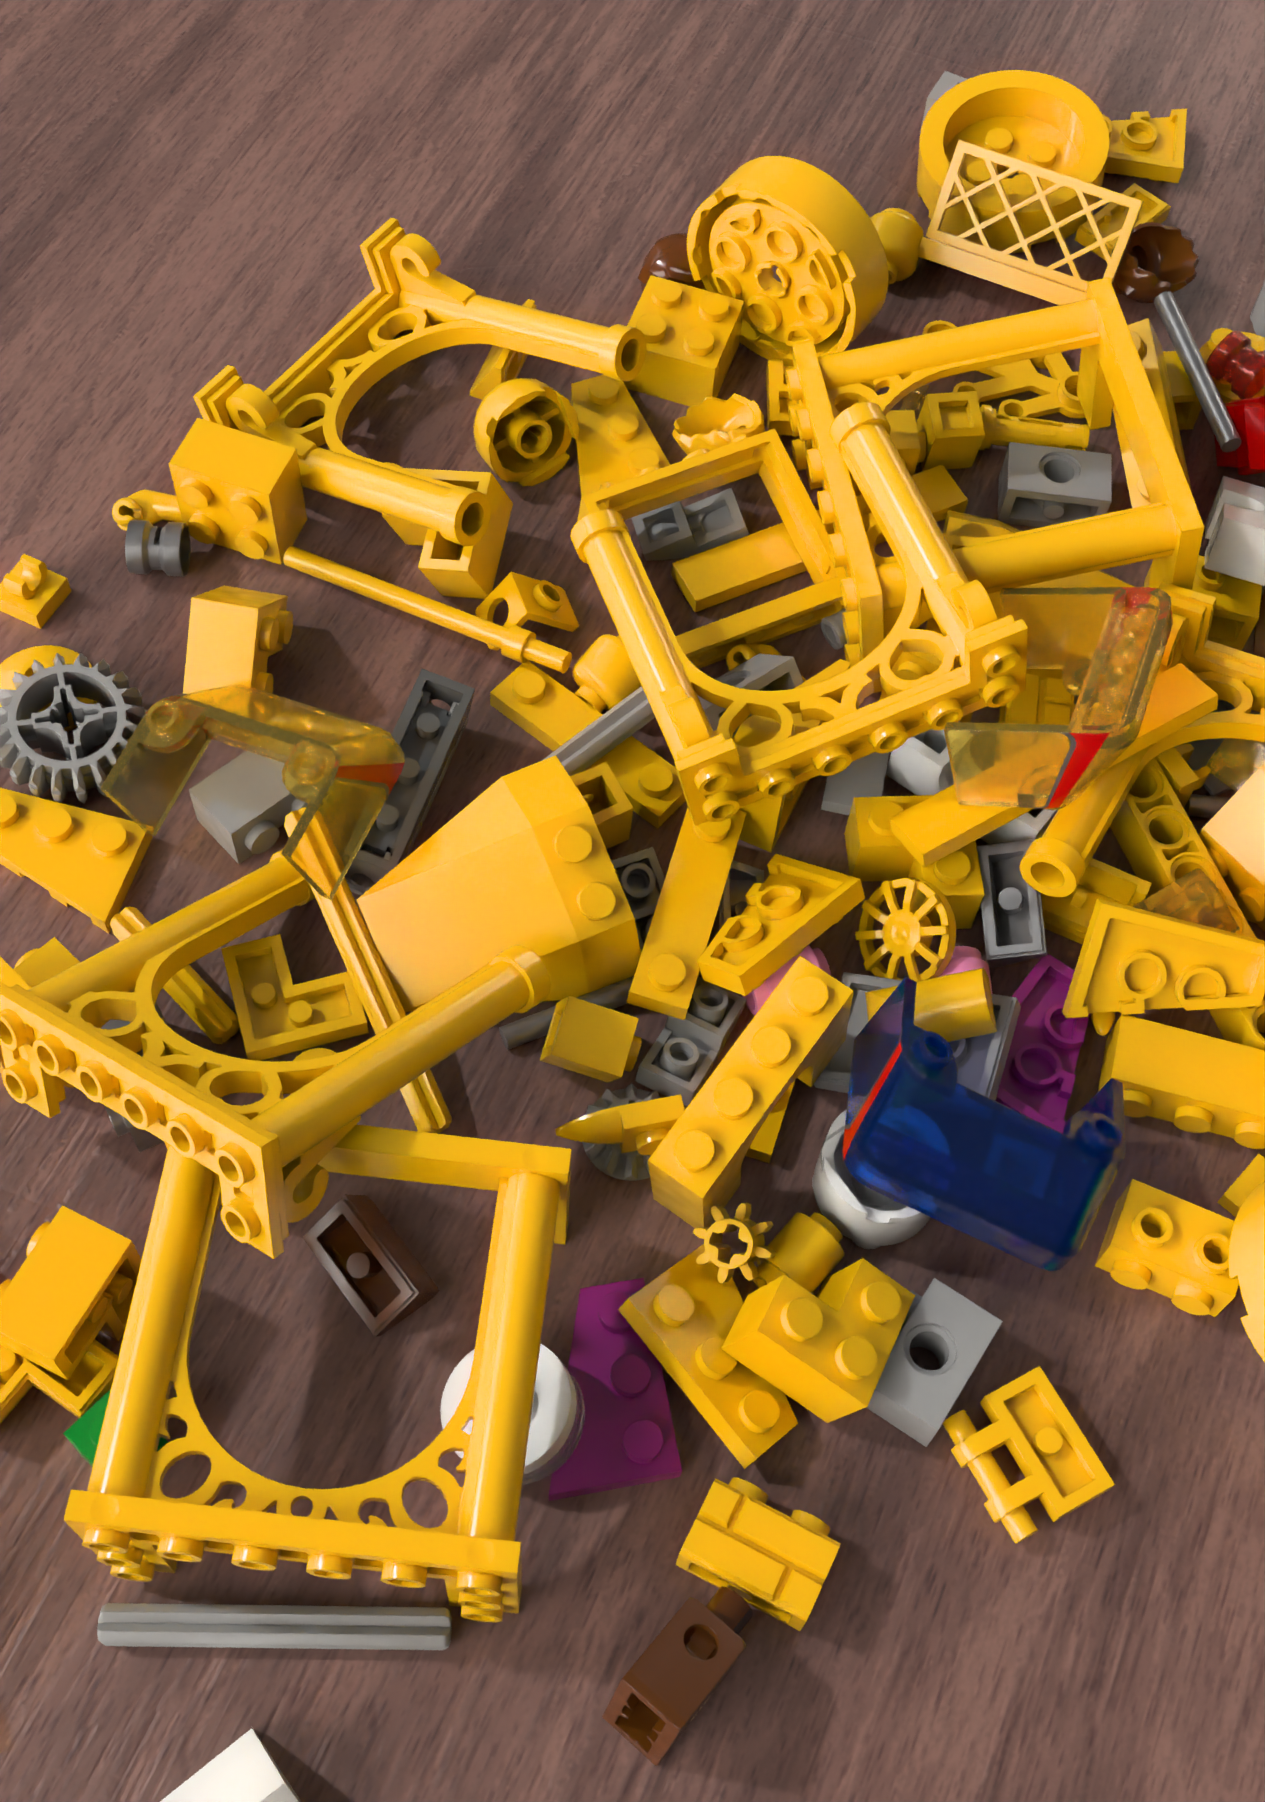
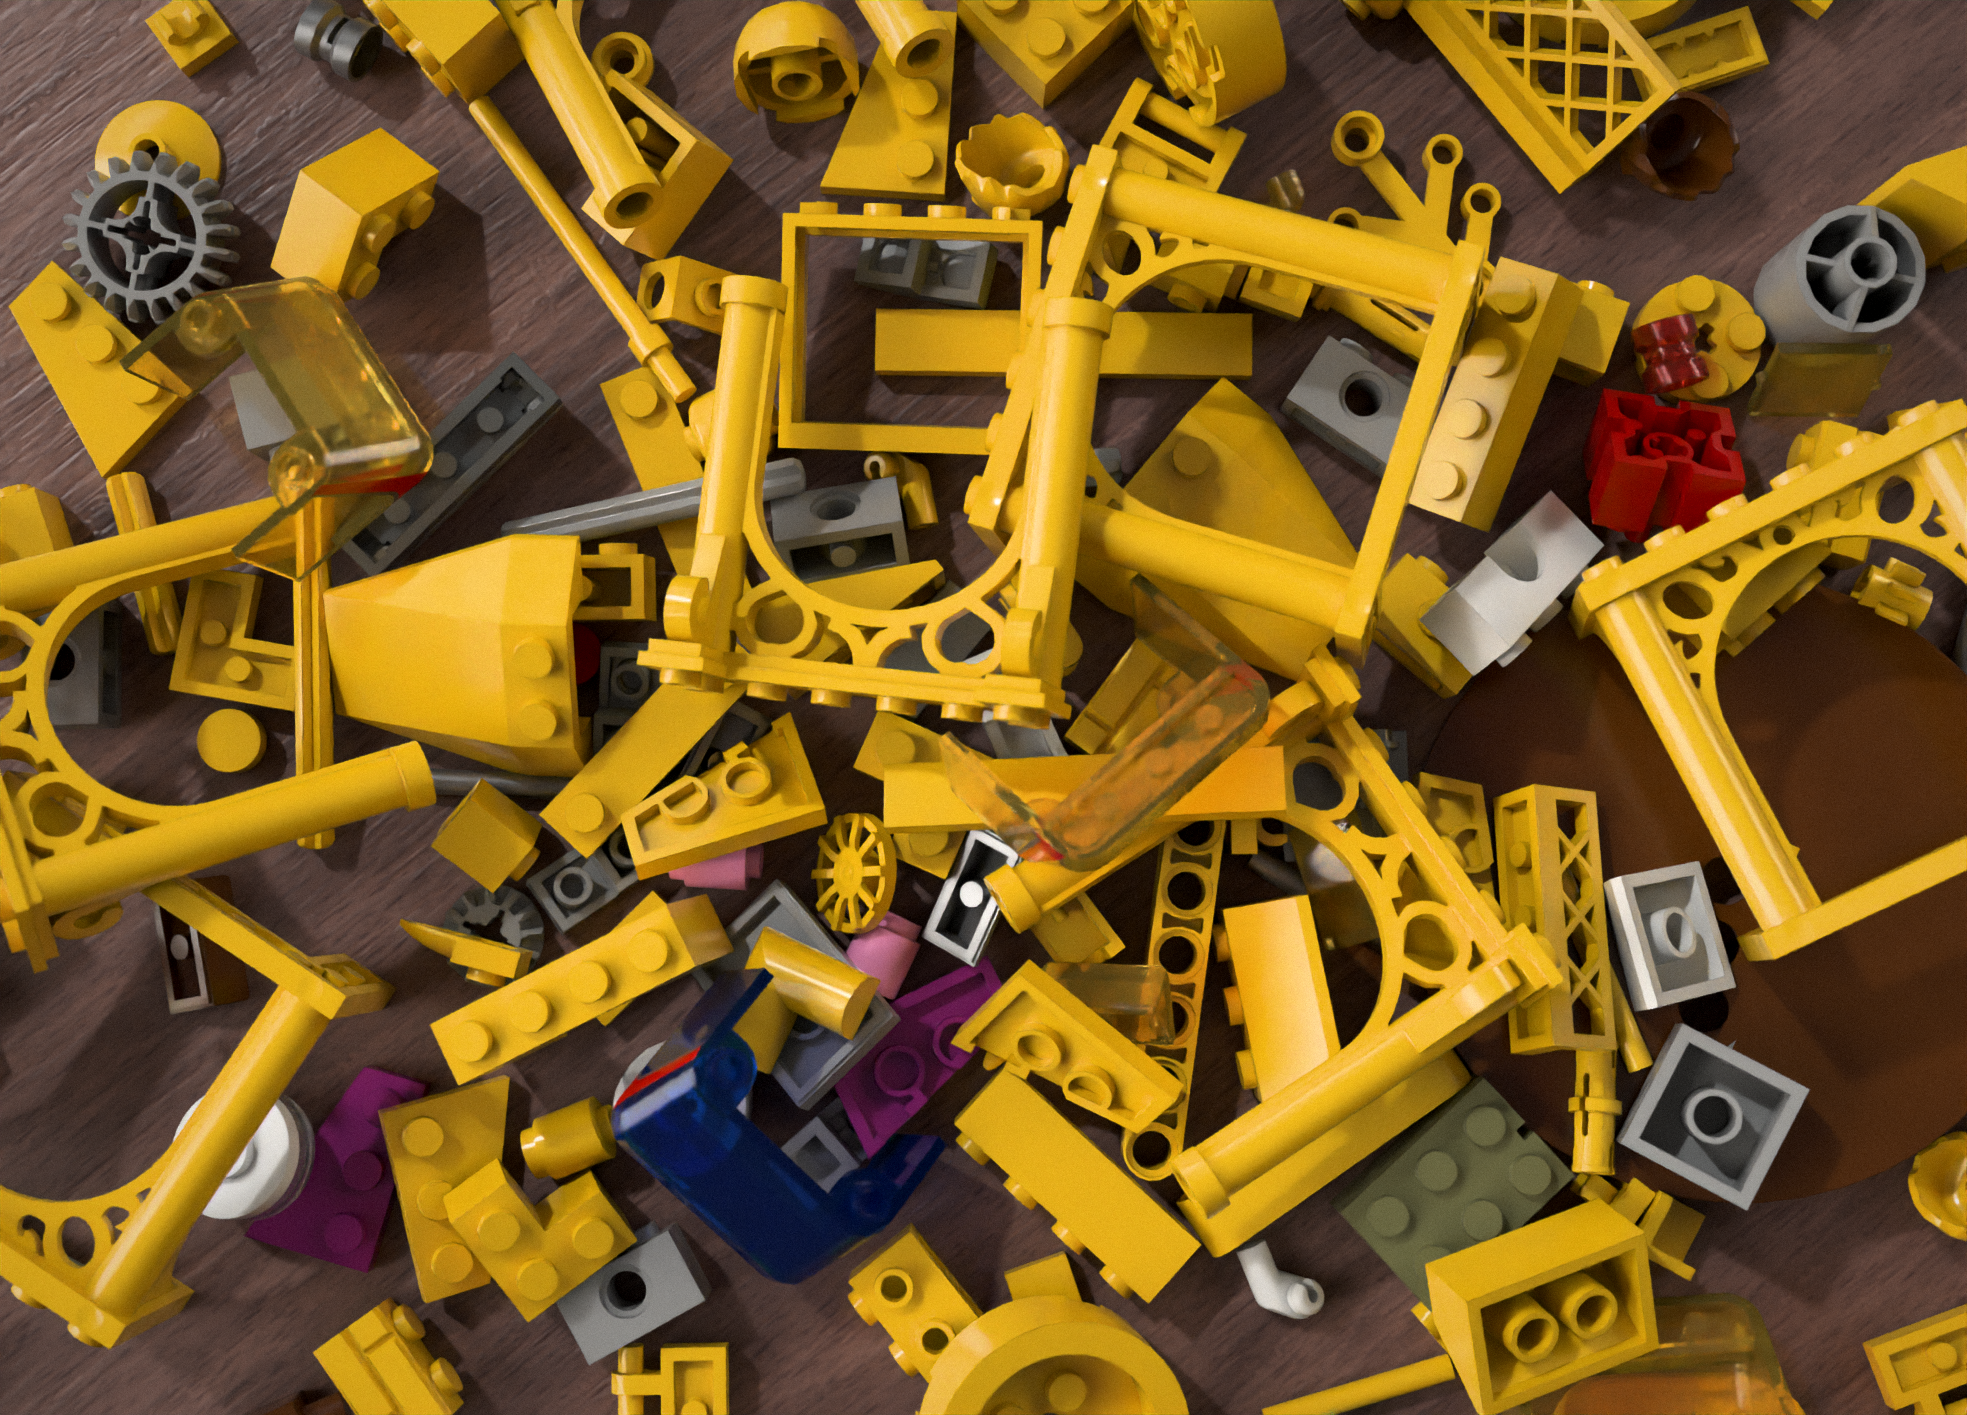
camera: 30 degrees right, 25 degrees up
(720, 1252) = (505, 1108): yellow gear -> none
(1197, 372) = (1608, 340): flat silver bar -> none

